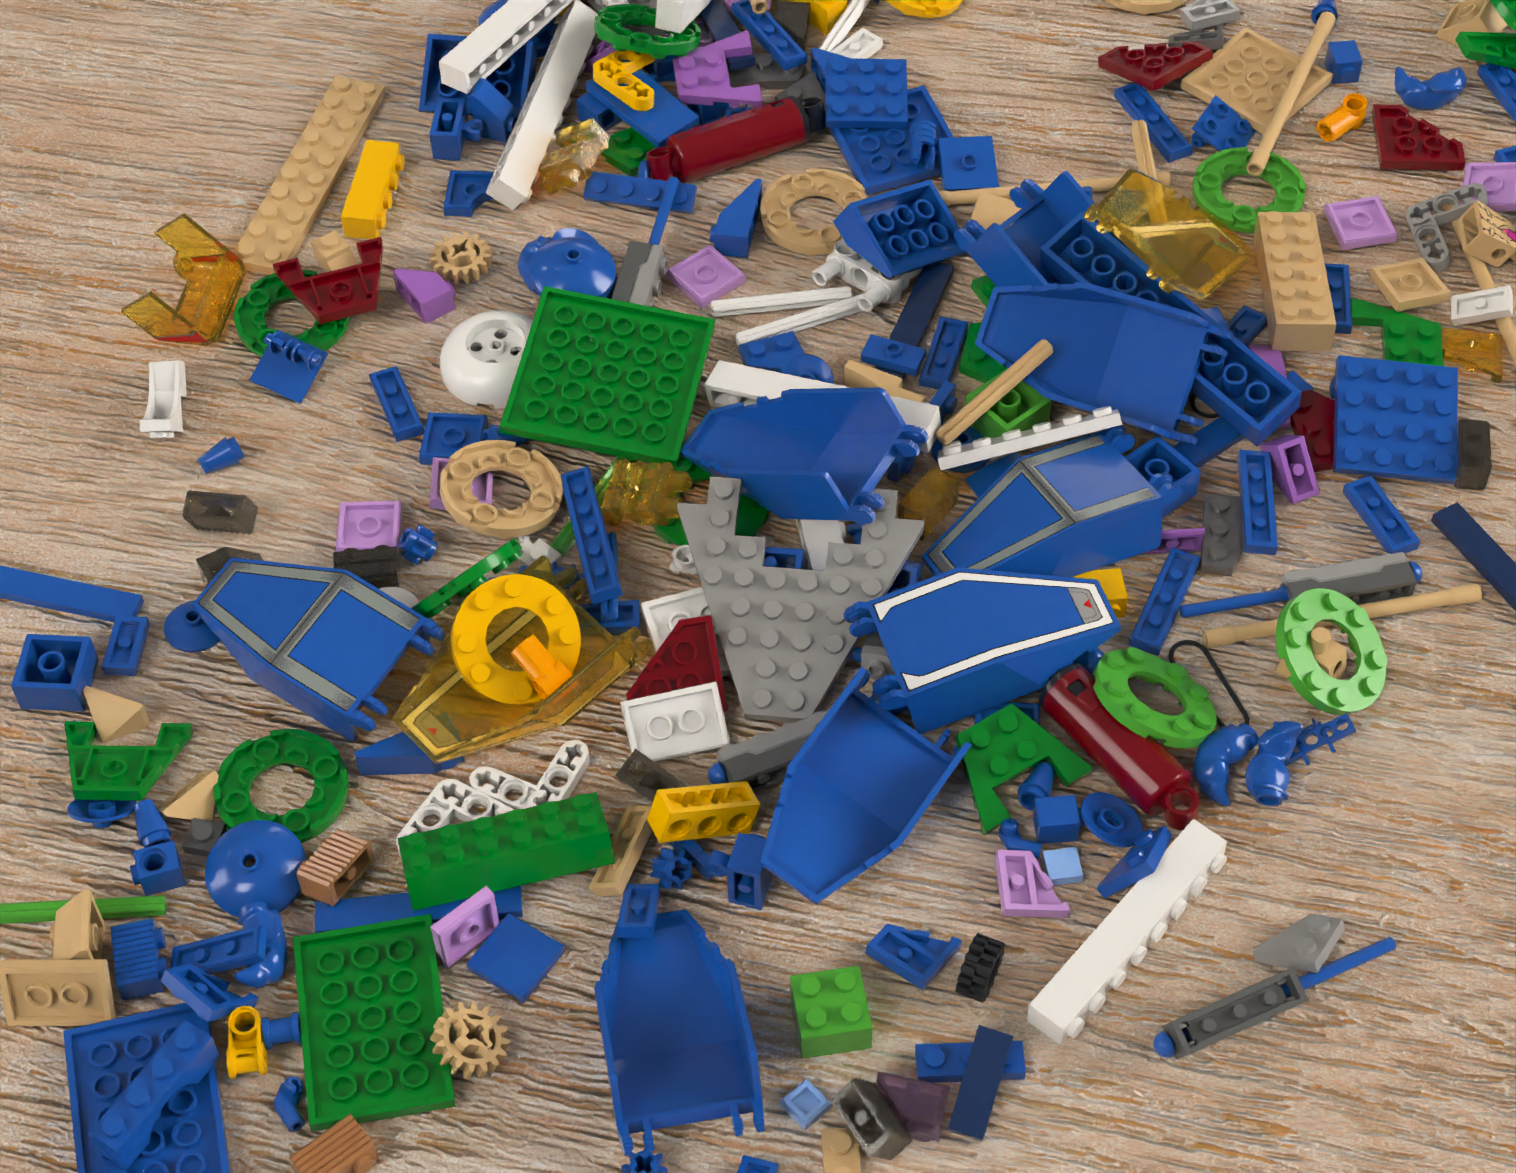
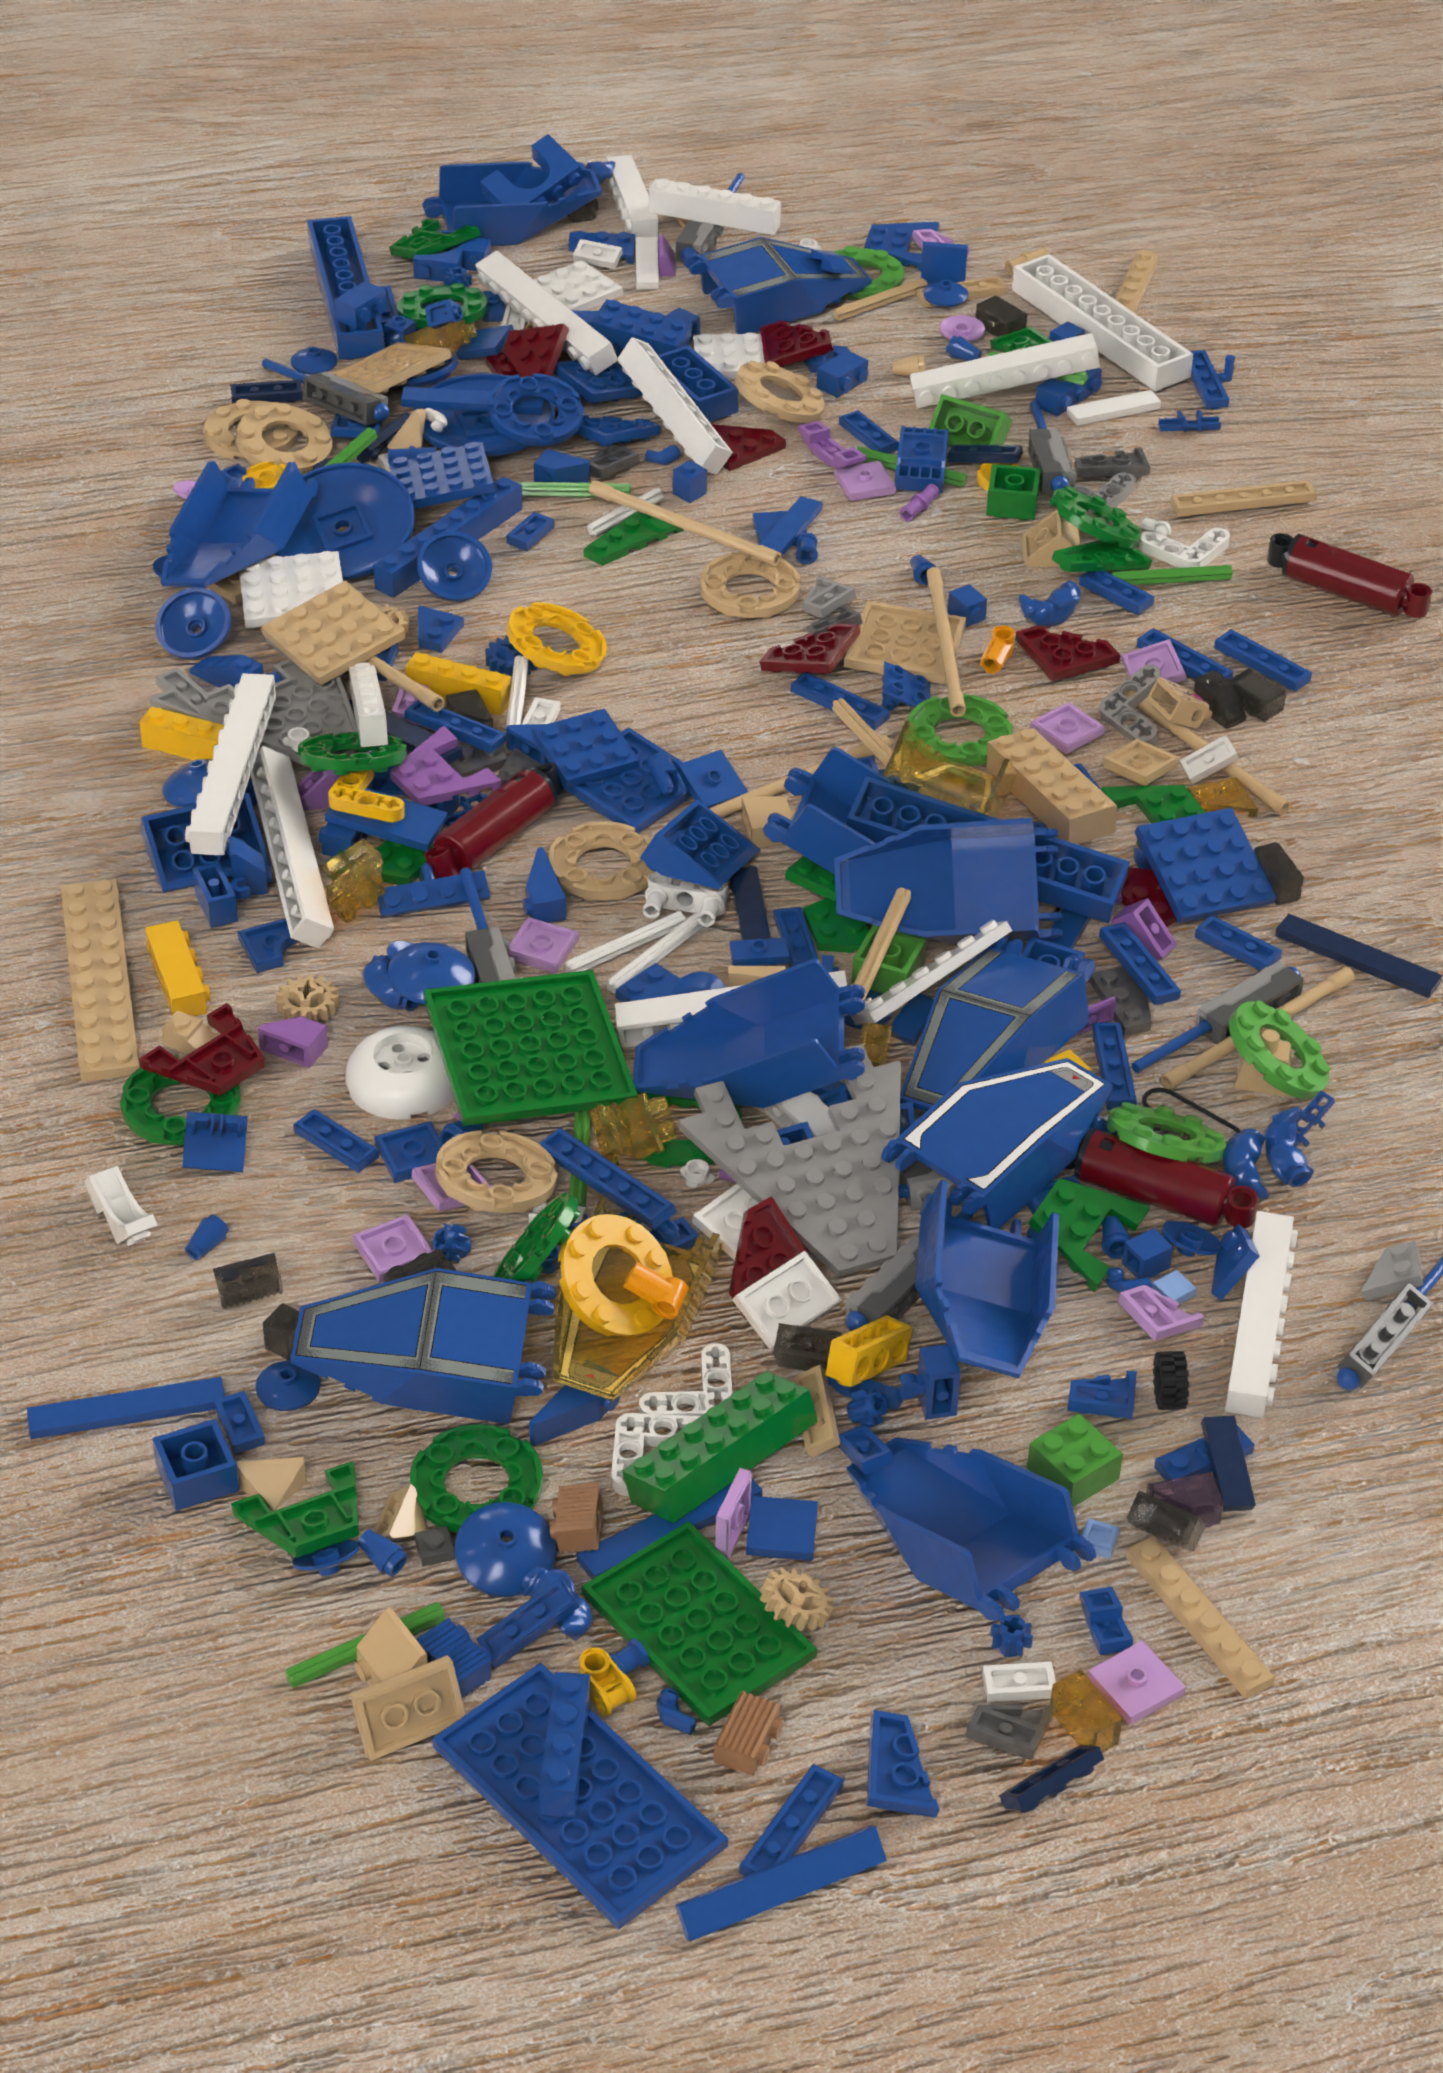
camera: 30 degrees left, 10 degrees down
(159, 856) = (416, 1582): blue brick -> none
(204, 992) = (554, 1659): blue wing -> none
(210, 291) = (78, 1100): clear yellow windscreen -> none

